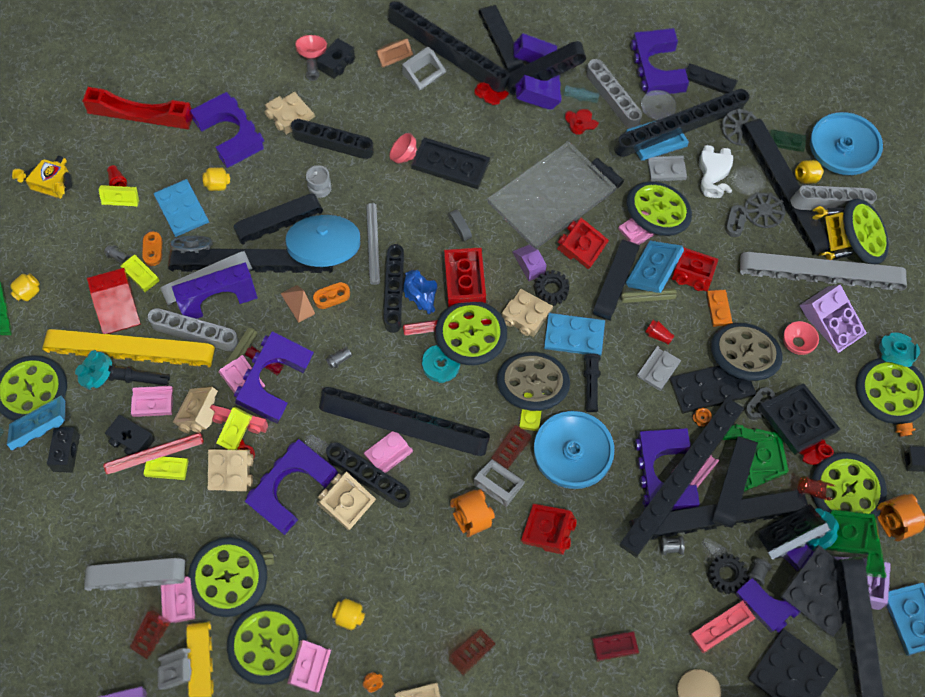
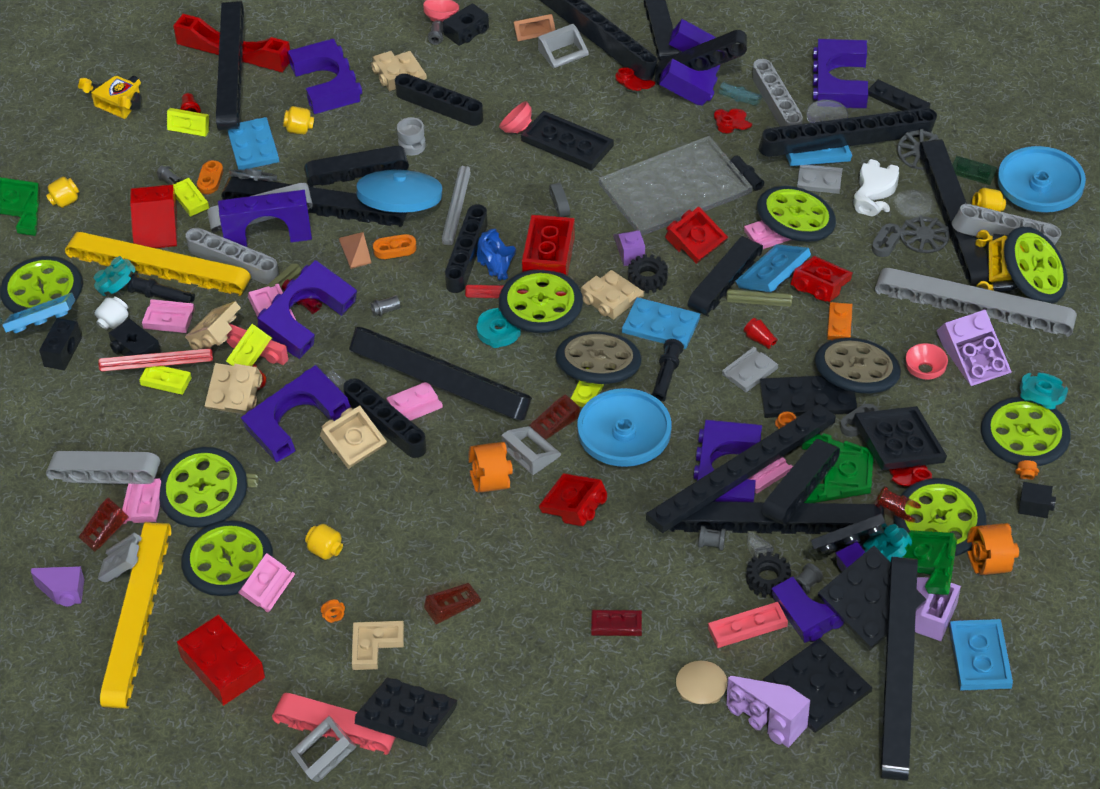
camera: 15 degrees right, 15 degrees down
(101, 408) = (111, 313): none -> white head
(143, 134) = (230, 66): none -> black beam

